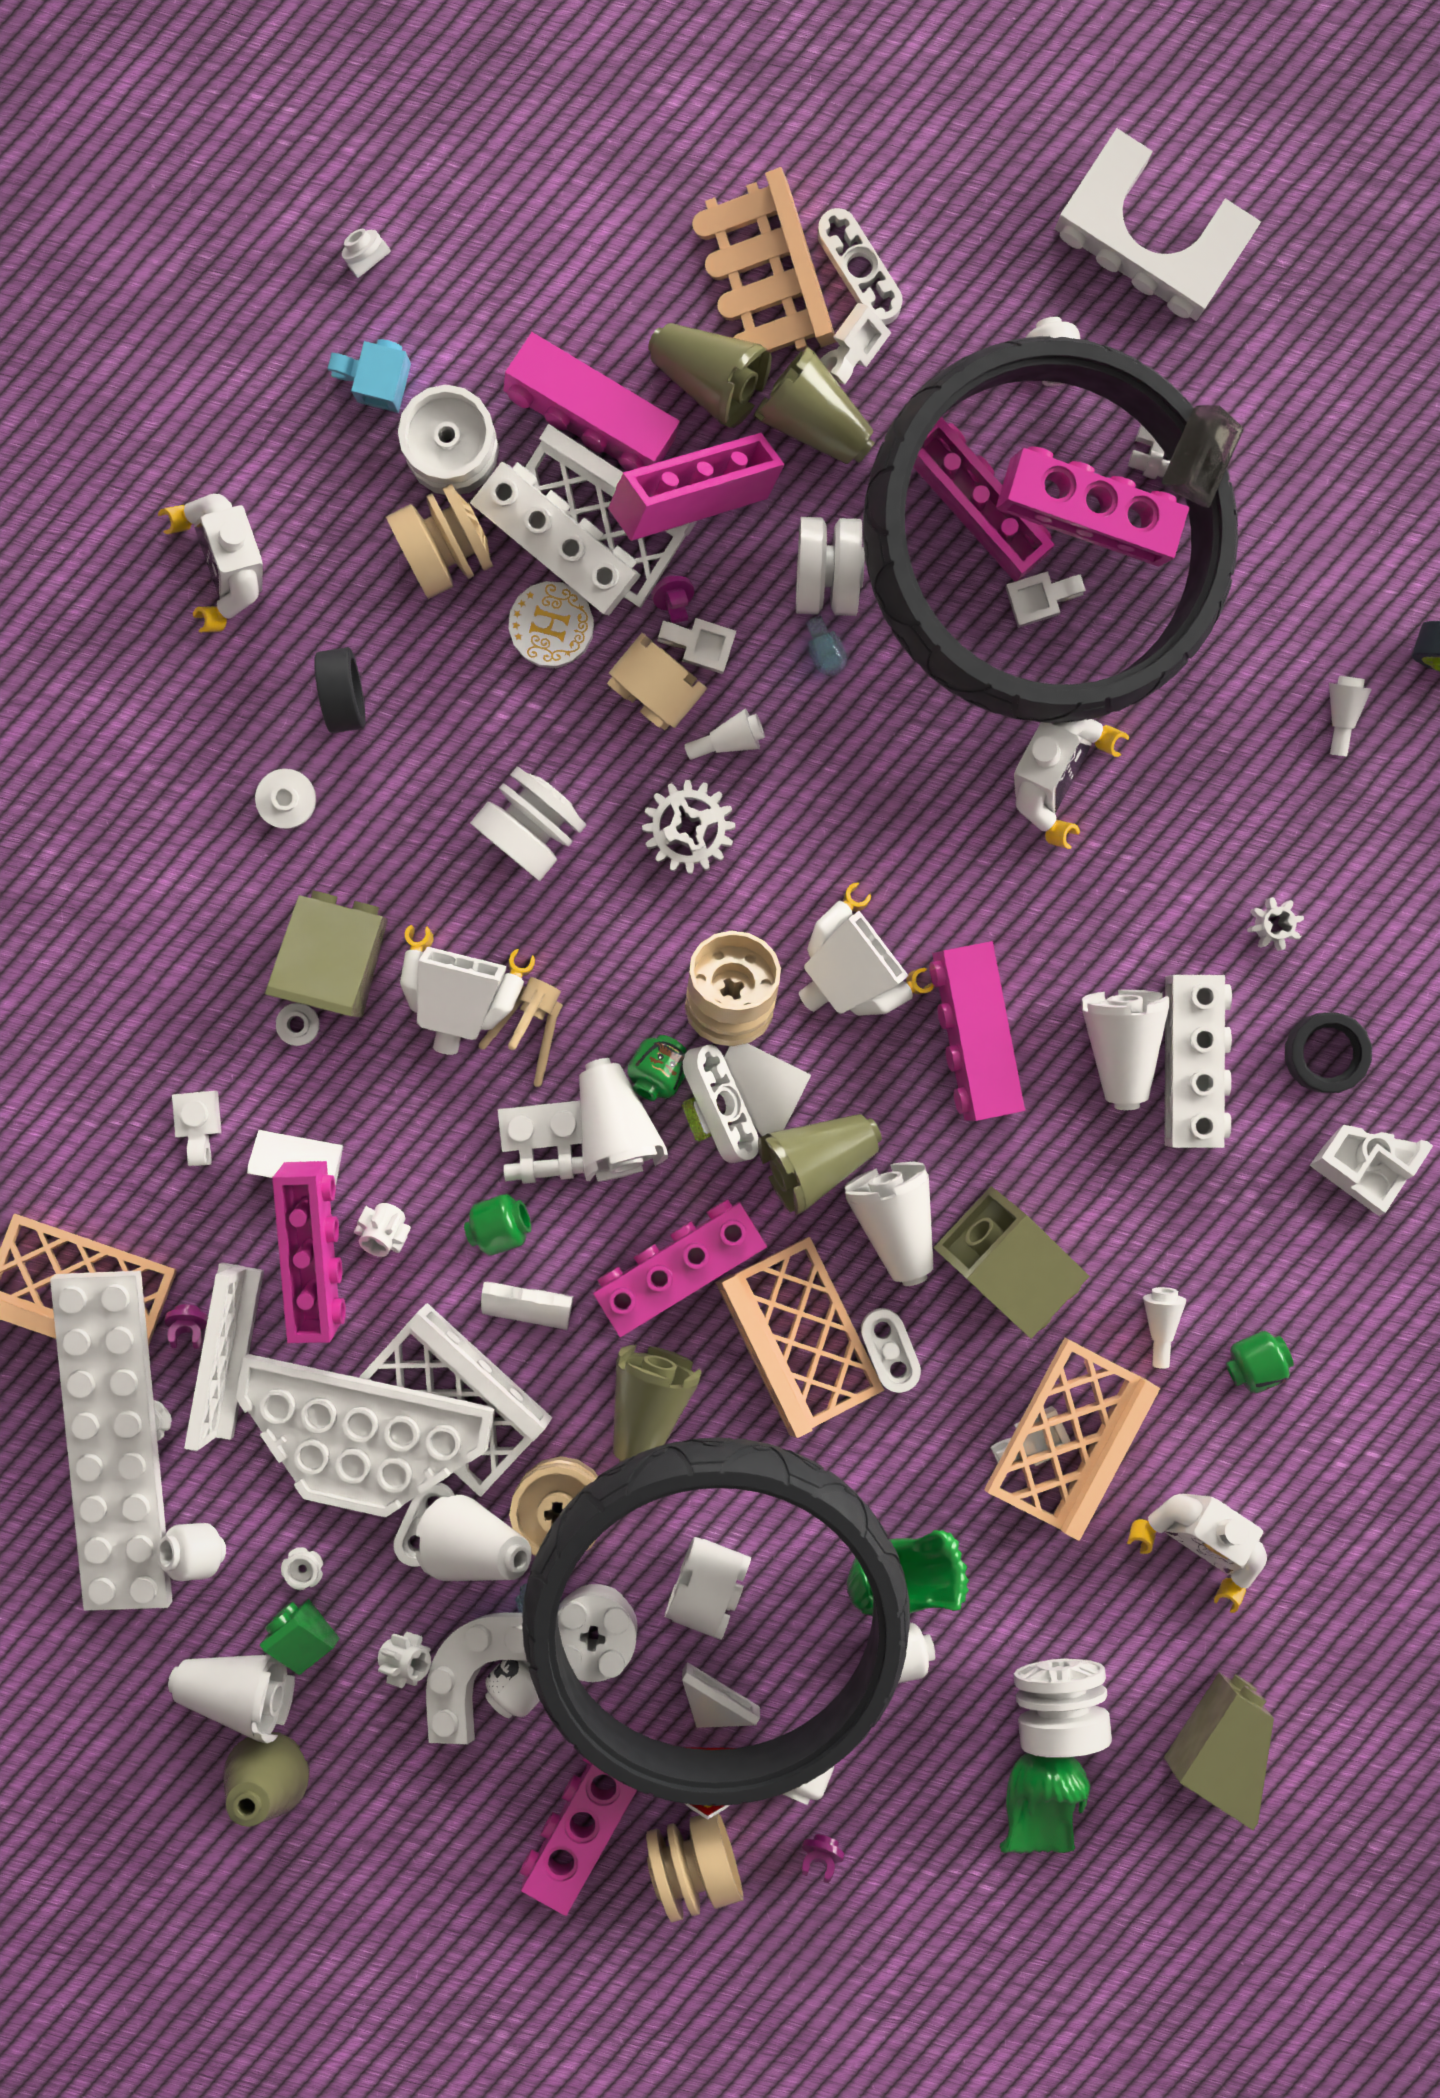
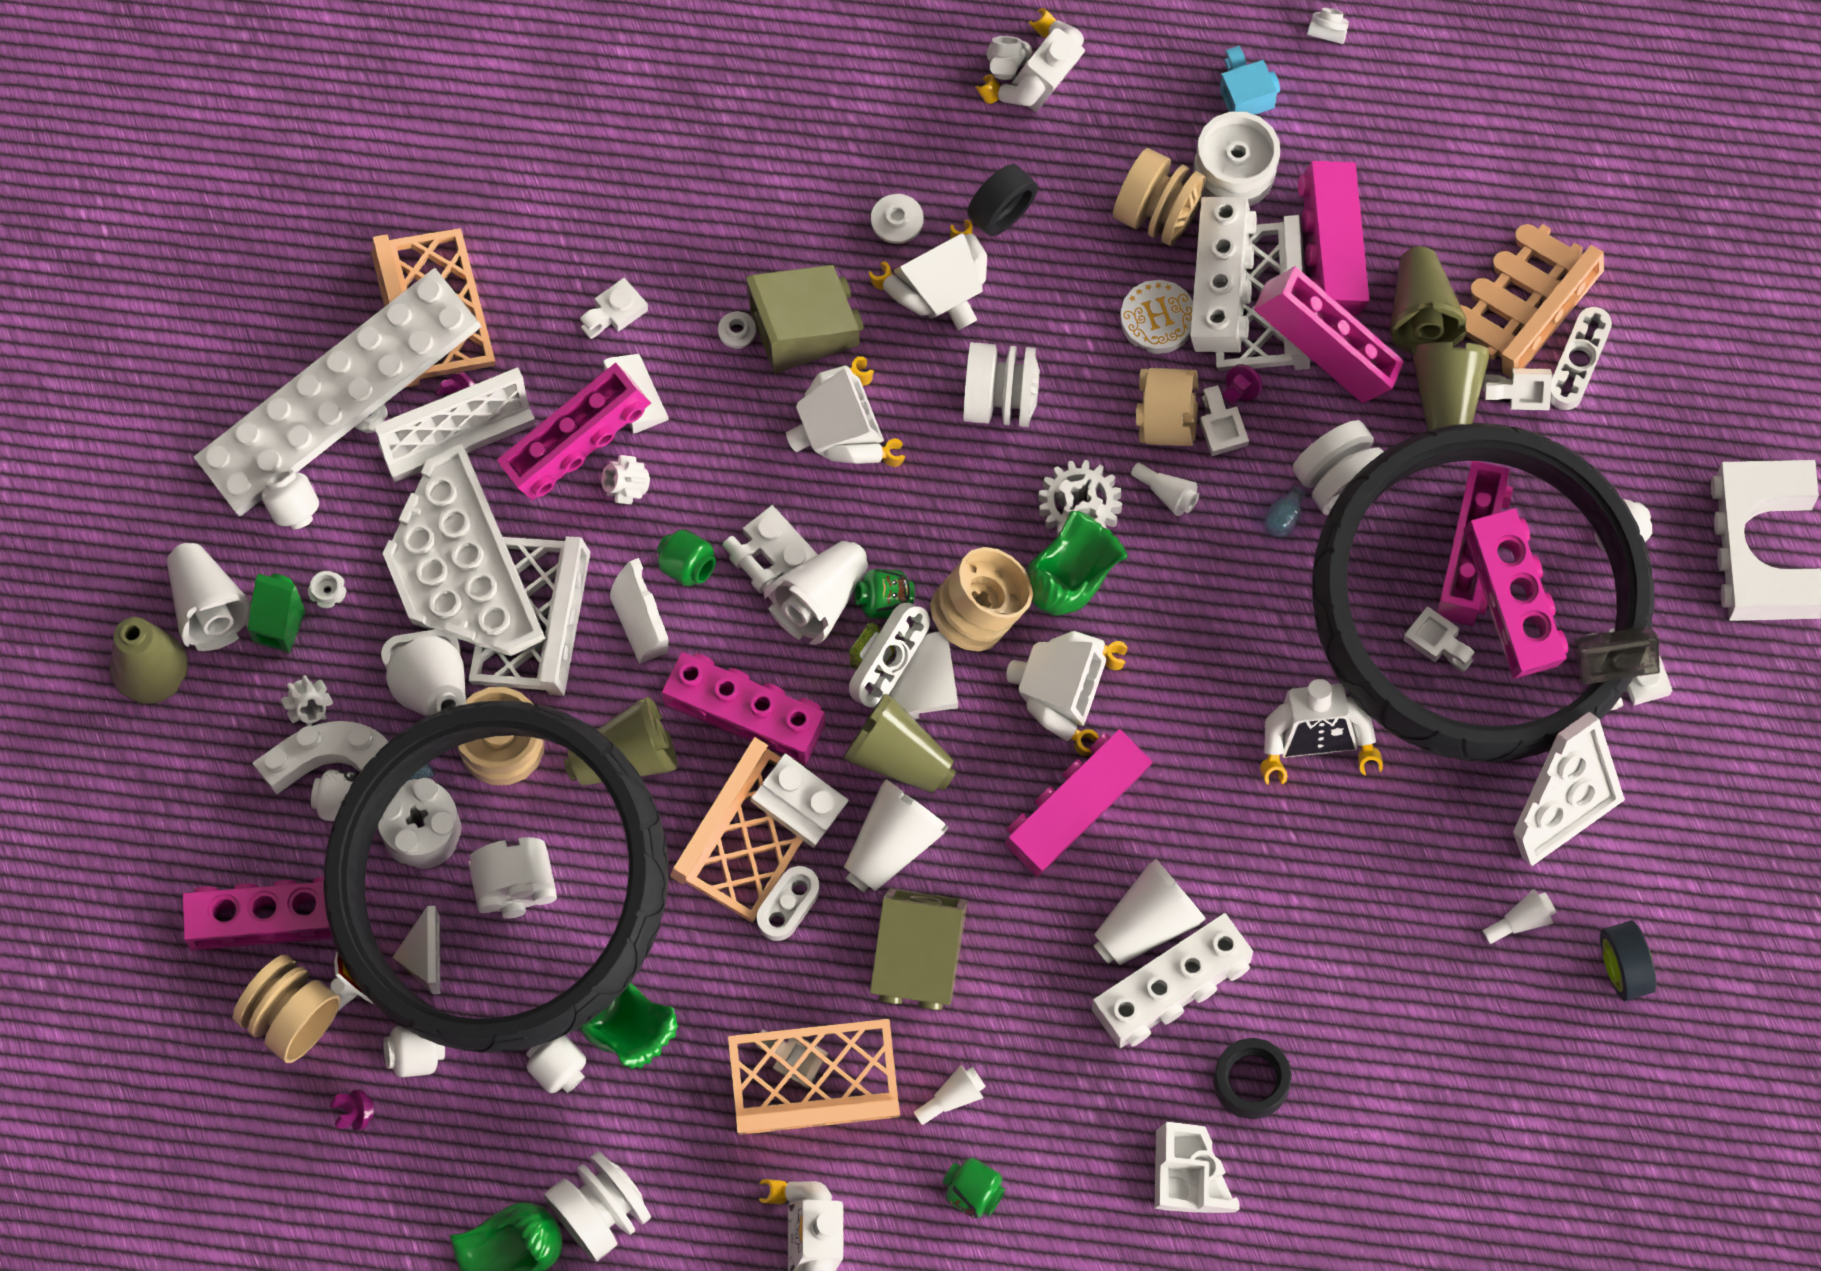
camera: 55 degrees right, 20 degrees down
(190, 580) = (1007, 55): none -> white plate
(378, 801) = (940, 278): none -> white torso
(537, 1001) = (873, 479): tan plant -> none
(753, 879) = (1073, 565): none -> green piece
(803, 1278) = (799, 800): none -> white plate
(1274, 583) = (1570, 792): none -> white plate
(1287, 922) = (1329, 964): white gear -> none

